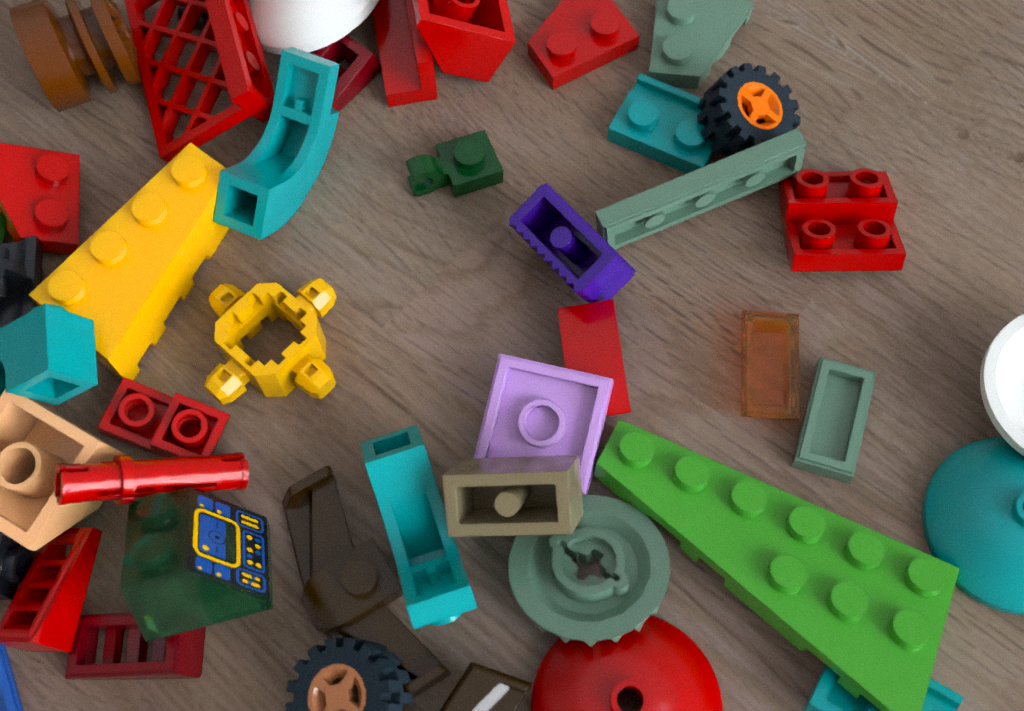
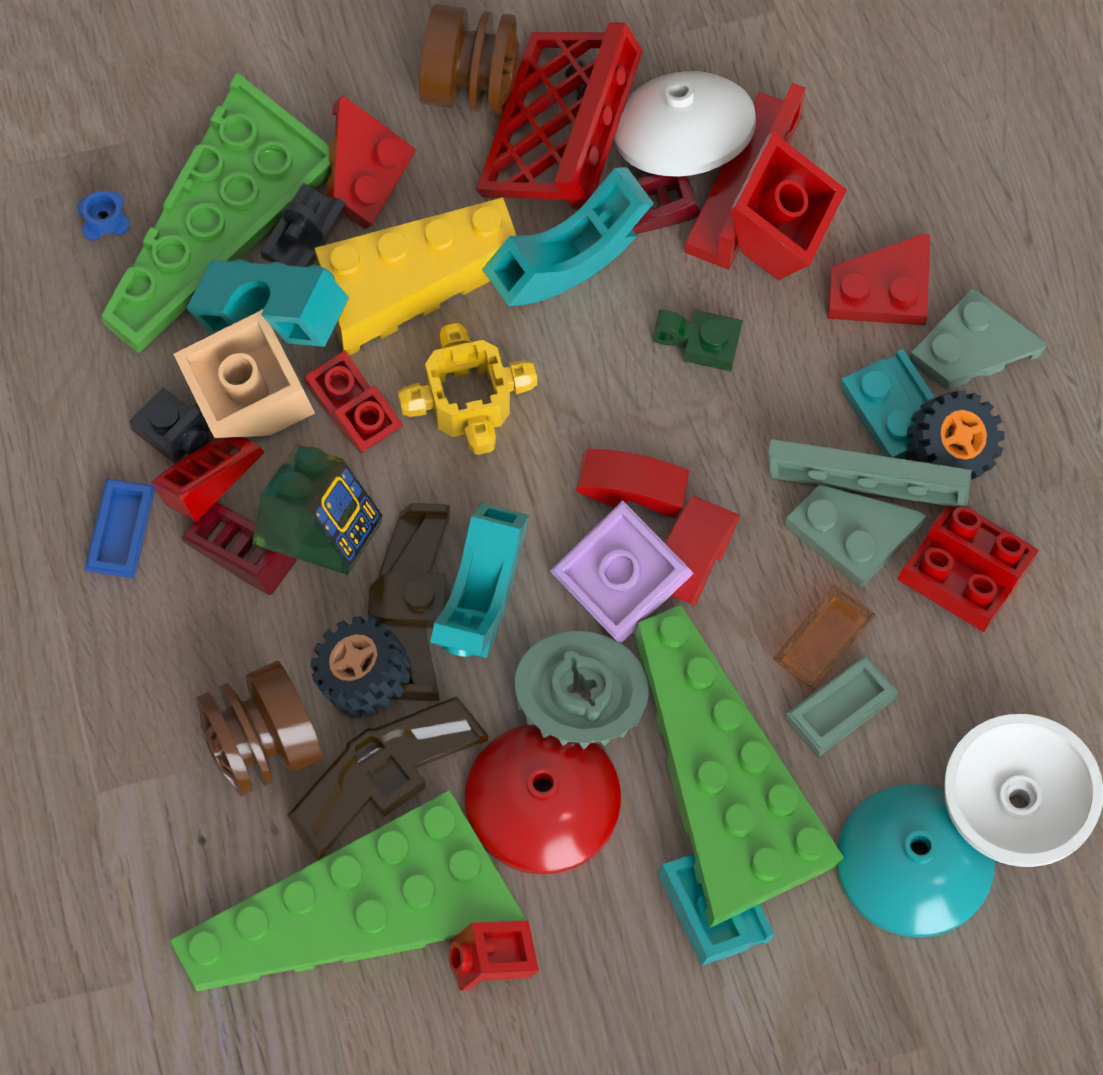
camera: 30 degrees right, 0 degrees up
(130, 479) = (305, 427): red pin -> none
(479, 332) = (627, 476): none -> red slope
(513, 496) = (560, 604): dark tan brick -> none
(570, 246) = (735, 454): dark purple brick -> none
(717, 253) = (853, 530): none -> sand green wing

